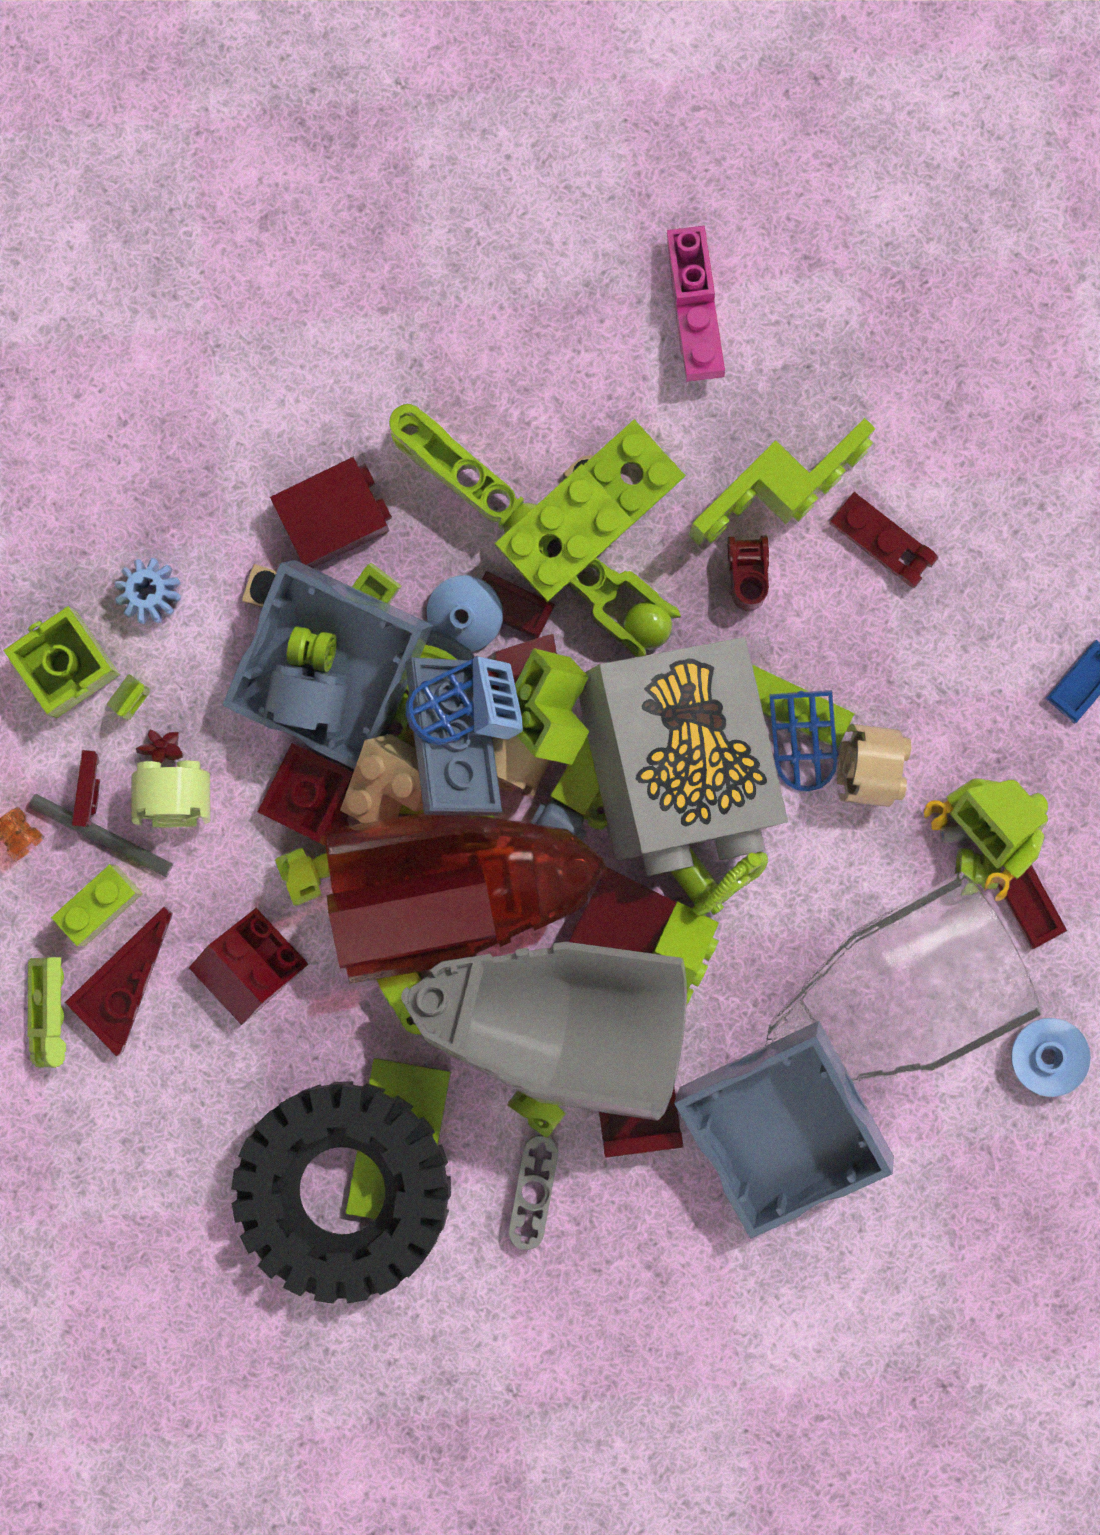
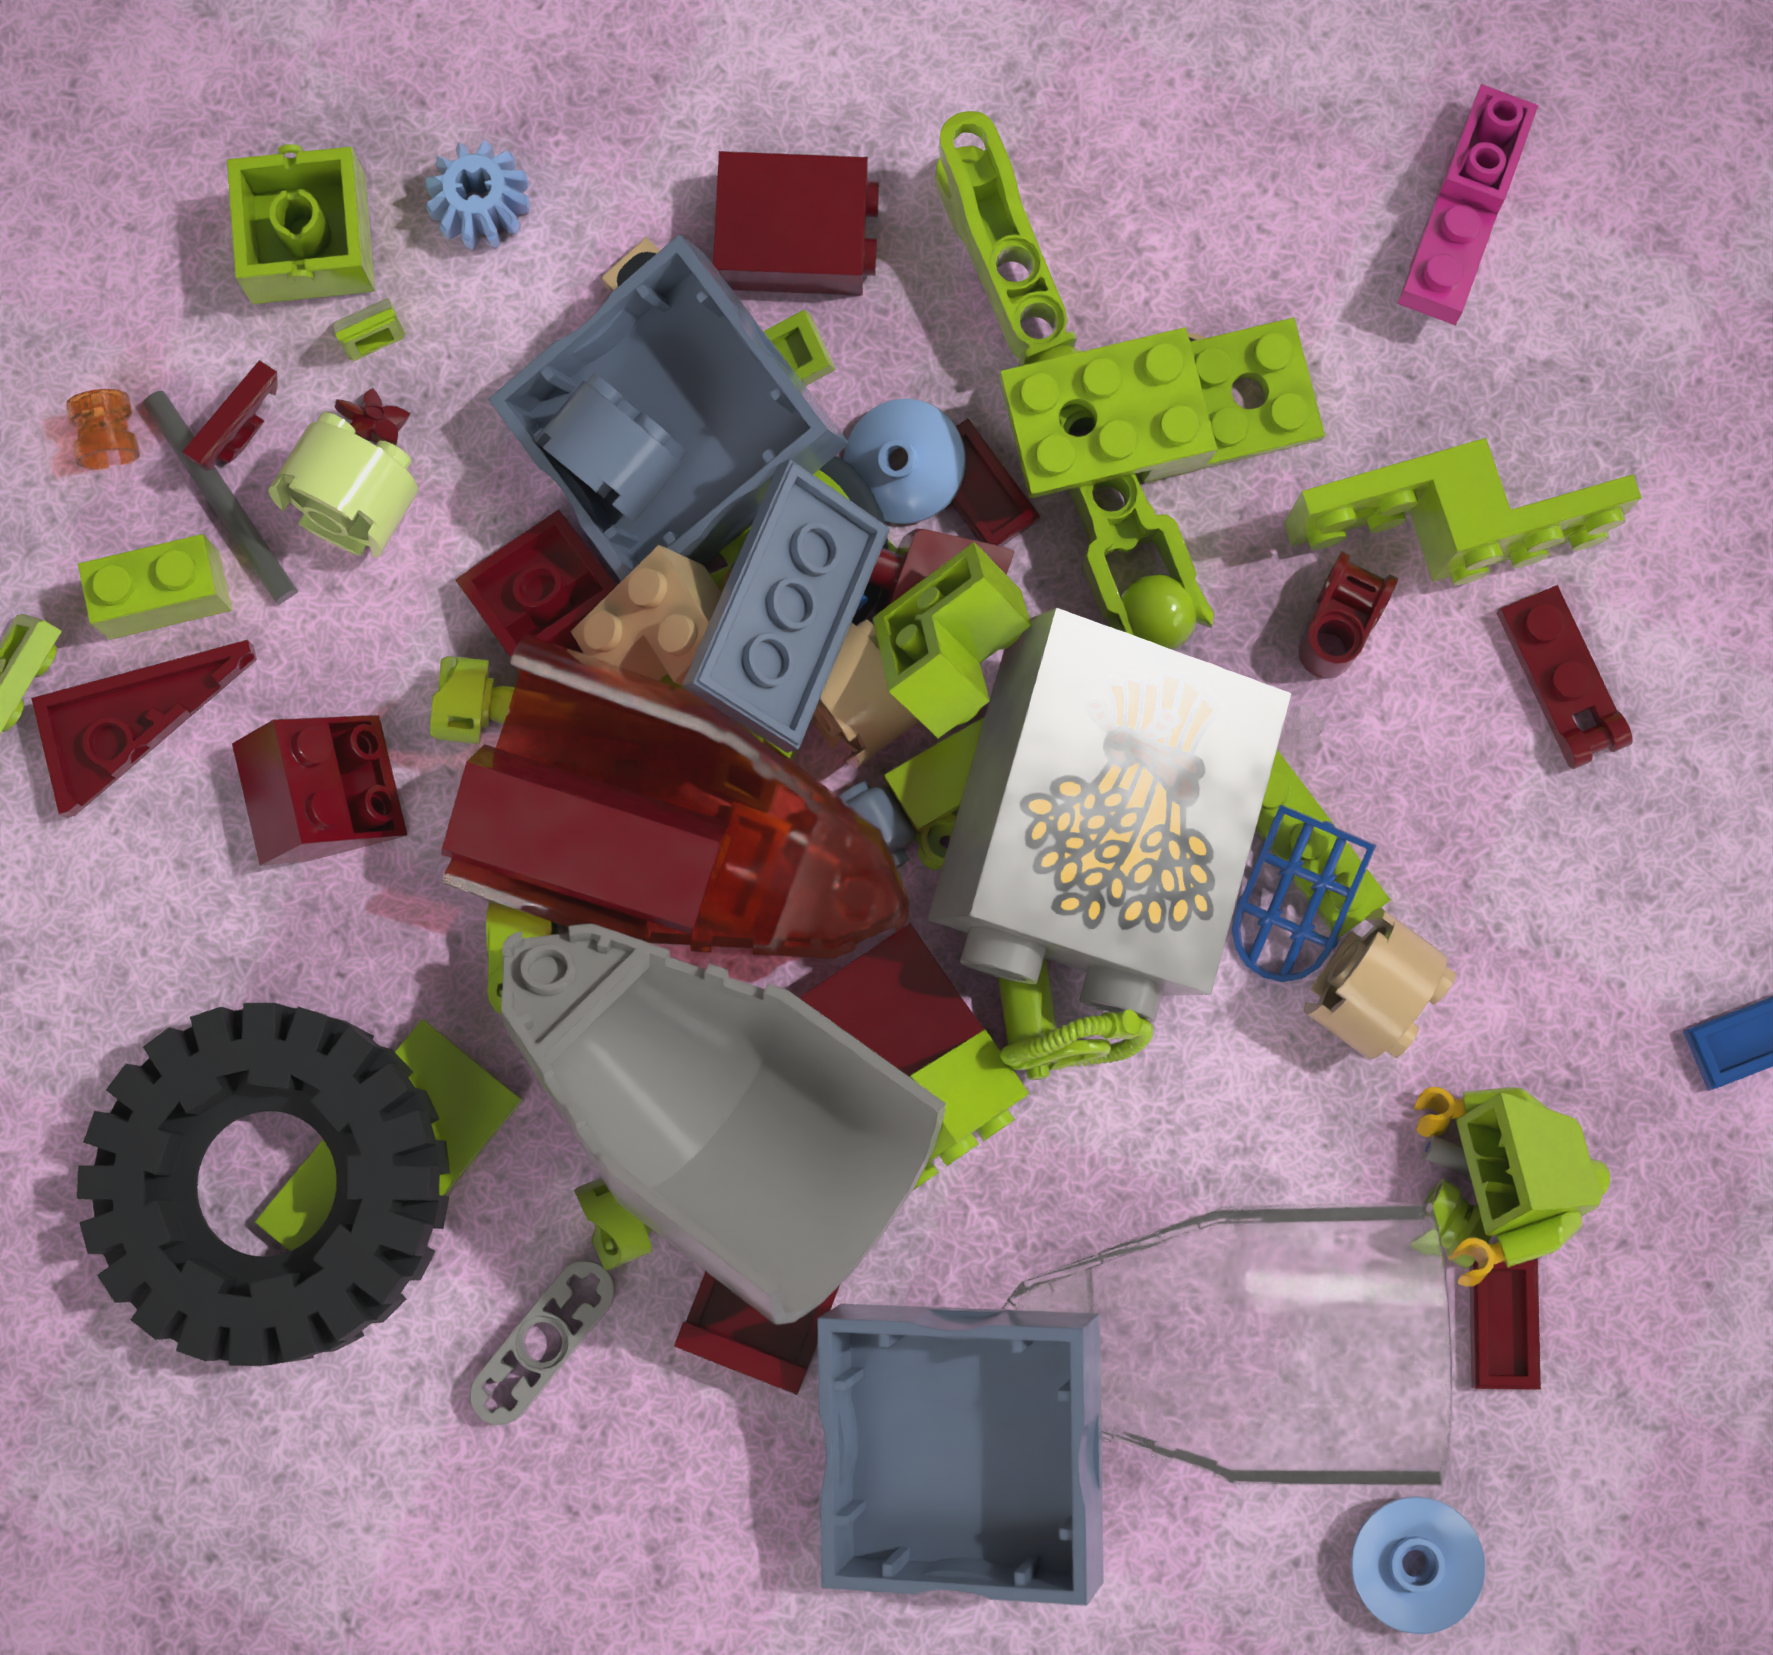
camera: 25 degrees right, 5 degrees down
(311, 649) = (657, 385): lime wheel -> none
(433, 703) = (832, 544): blue window -> none
(485, 709) = (847, 606): light blue slope -> none

